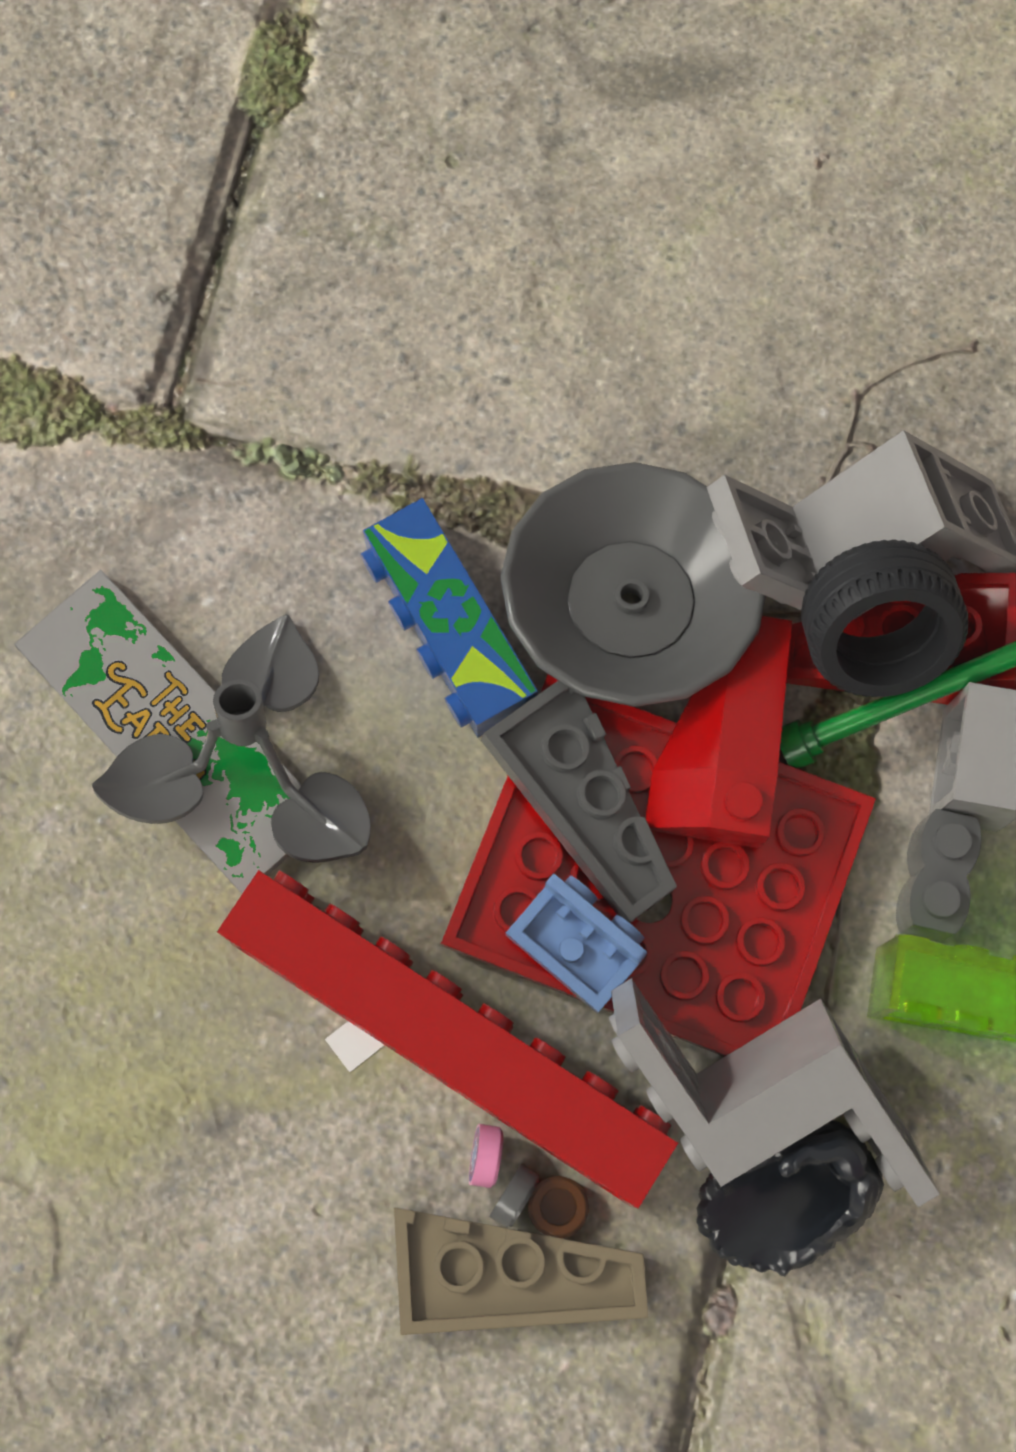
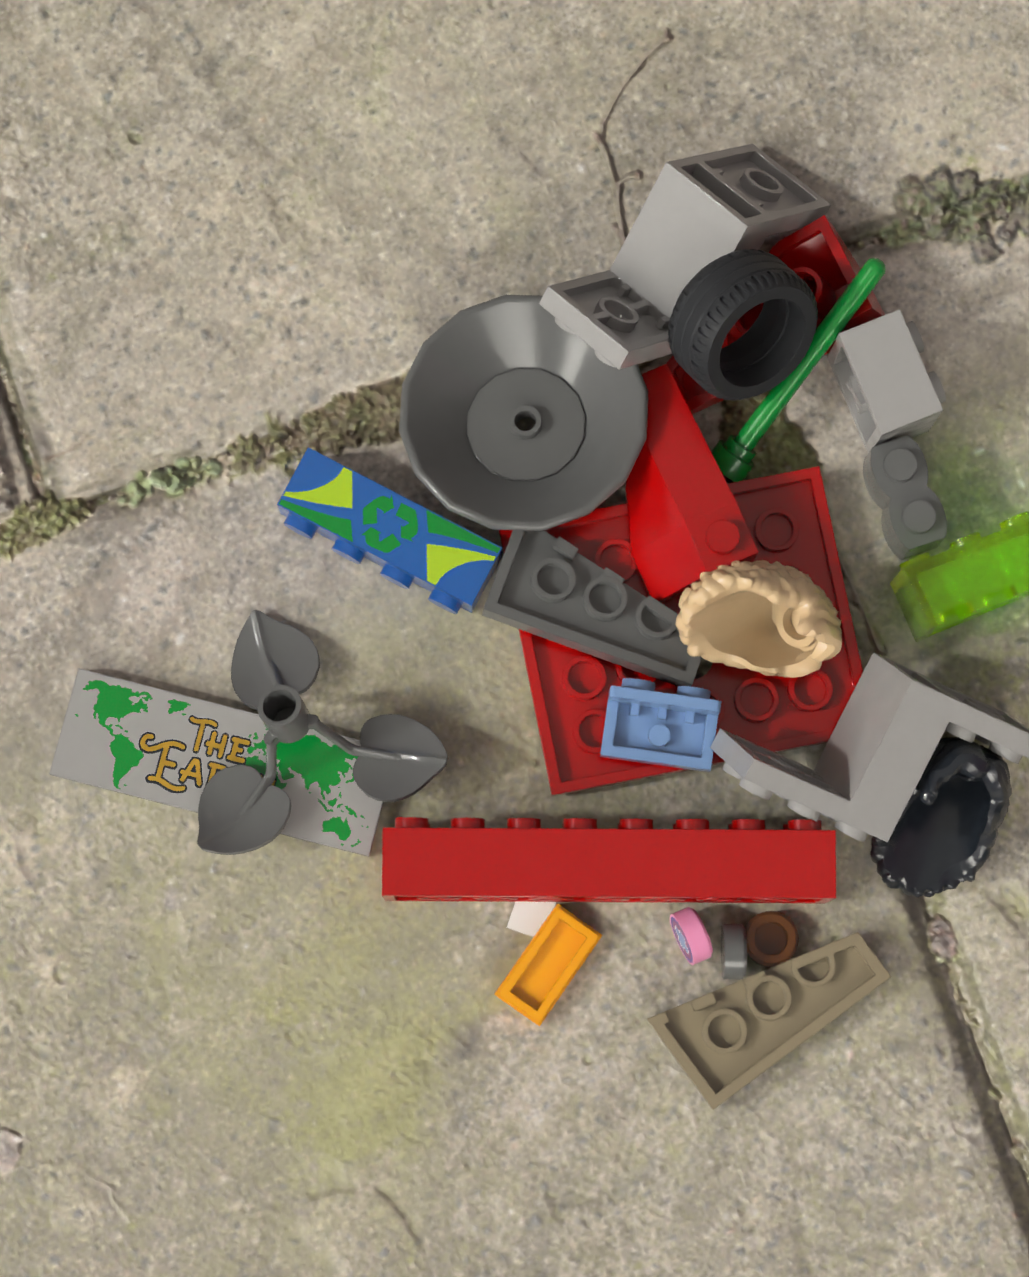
camera: 35 degrees left, 5 degrees up
(338, 1098) = (548, 964): none -> light orange tile
(730, 899) = (759, 619): none -> tan hair

